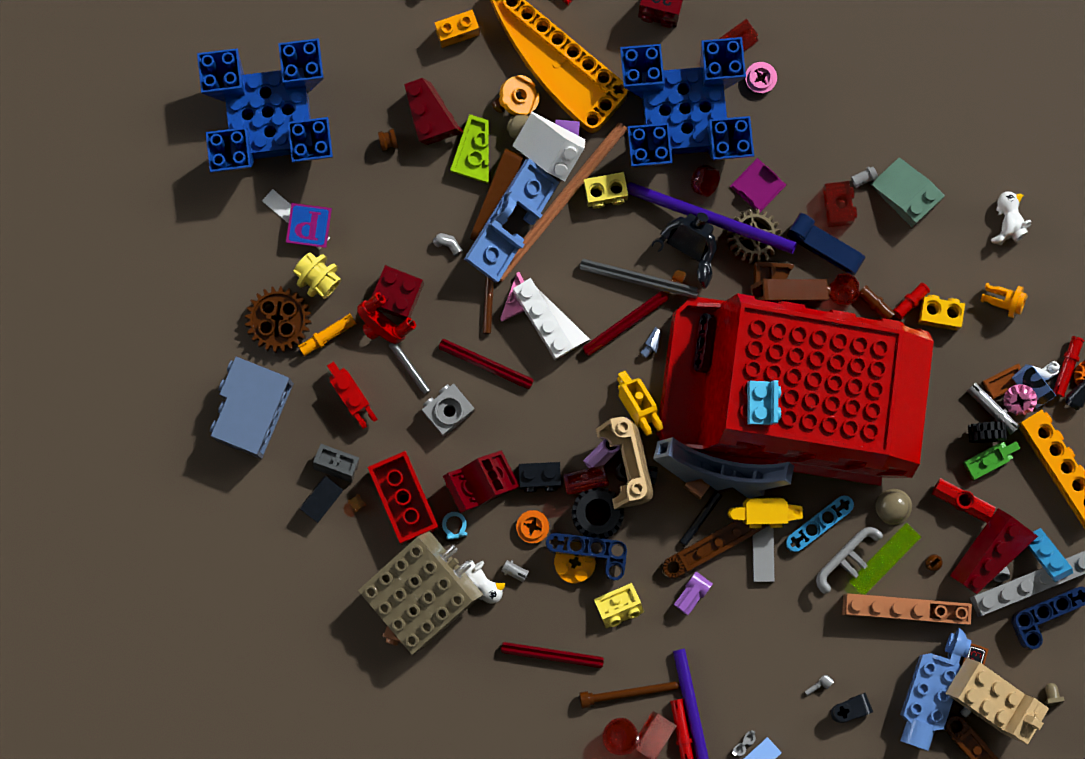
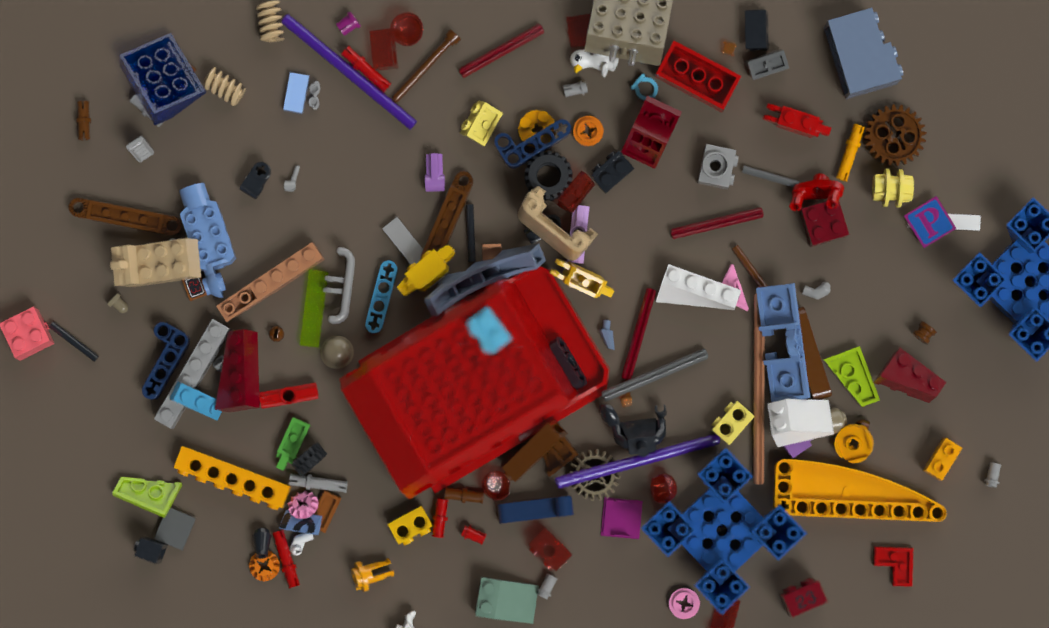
camera: 145 degrees right, 5 degrees up
(470, 621) = (578, 29): none -> clear red piece
(893, 265) = (473, 534): none -> red pin

